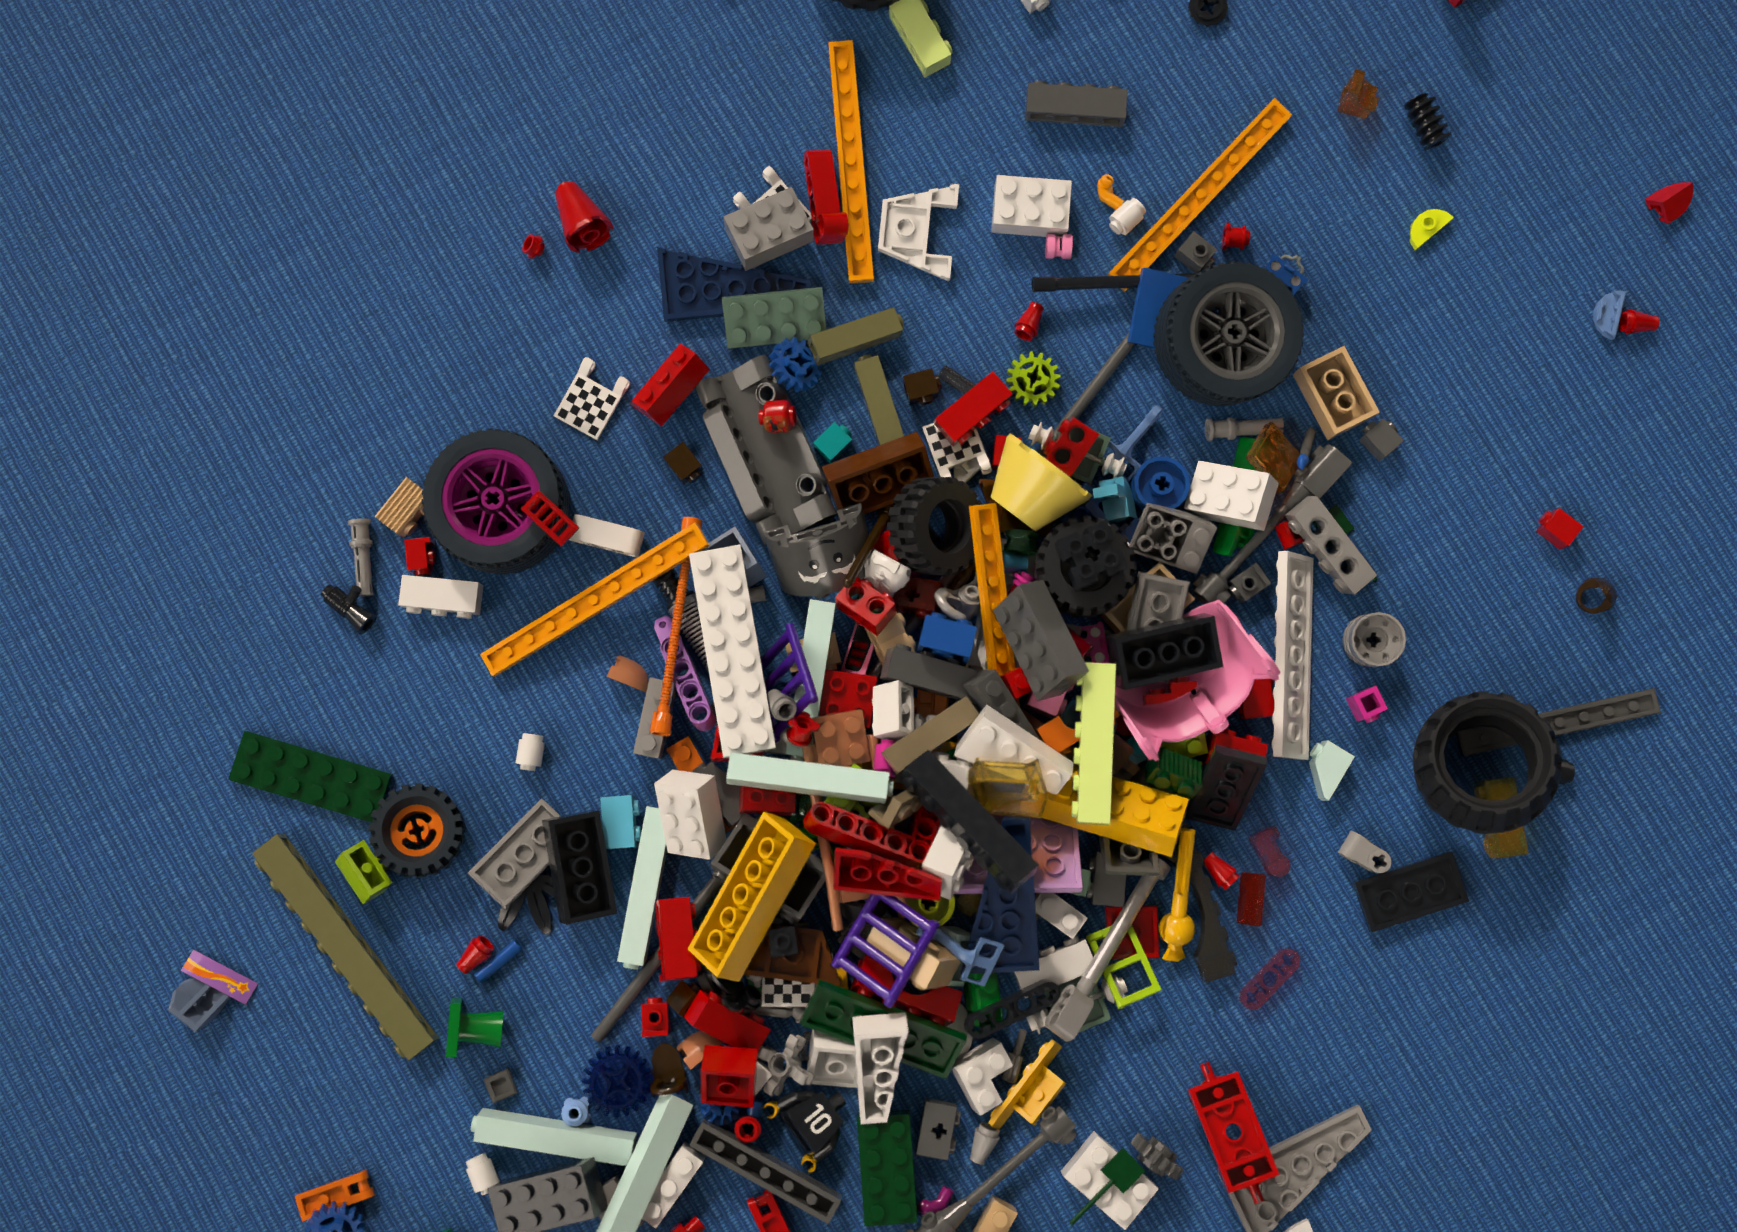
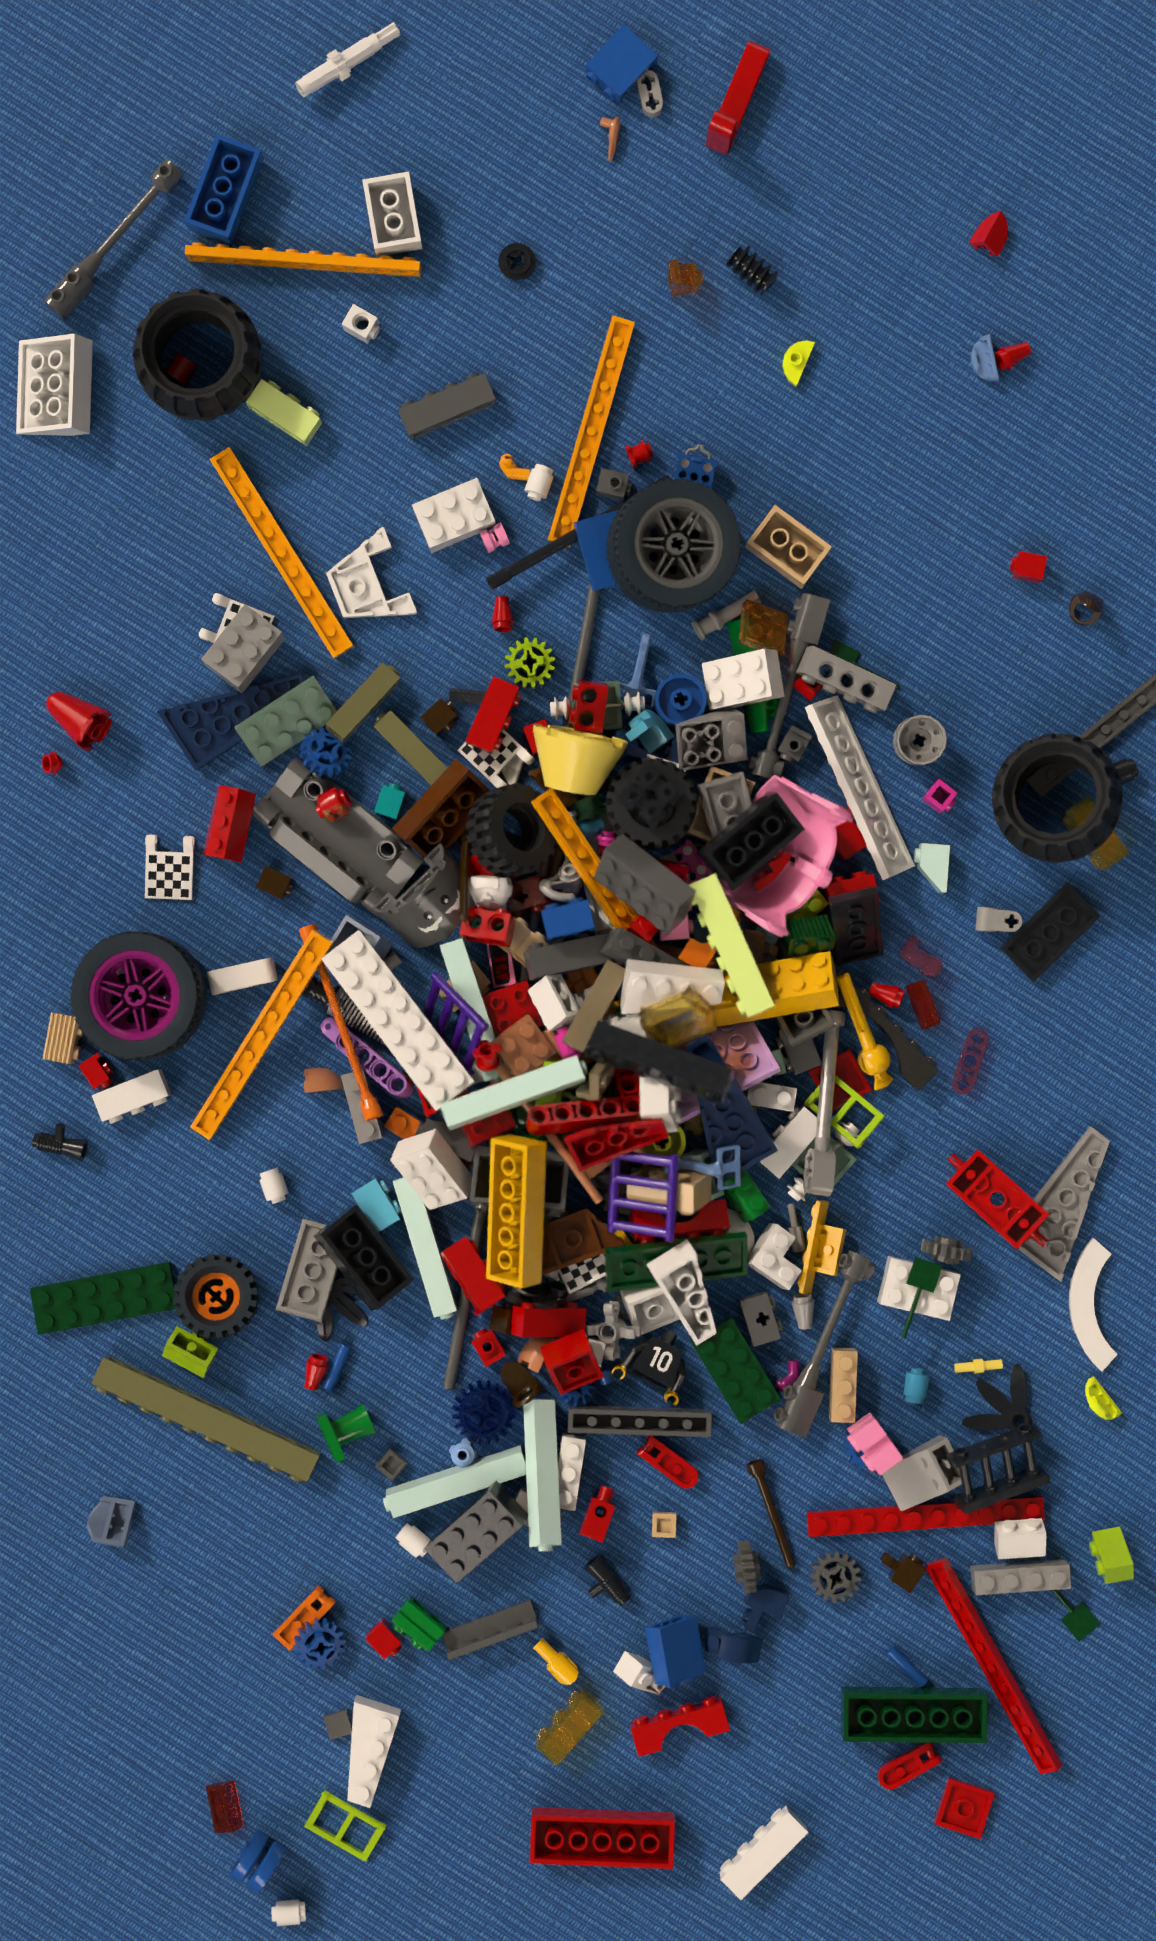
camera: 25 degrees left, 5 degrees up
(219, 977) = (117, 1495): medium lavender sticker -> none
(361, 545) = (43, 1087): light grey pin -> none
(533, 502) = (181, 994): red slope -> none
(745, 1135) = (608, 1402): red cone -> none
(781, 705) = (461, 1045): light grey cone -> none
(784, 942) = (561, 1233): black brick -> none
(828, 222) = (289, 616): red beam -> none
(1010, 1003) = (769, 1190): black beam -> none
(1306, 448) = (786, 606): dark grey piece -> none
(1380, 438) = (844, 565): dark grey brick -> none

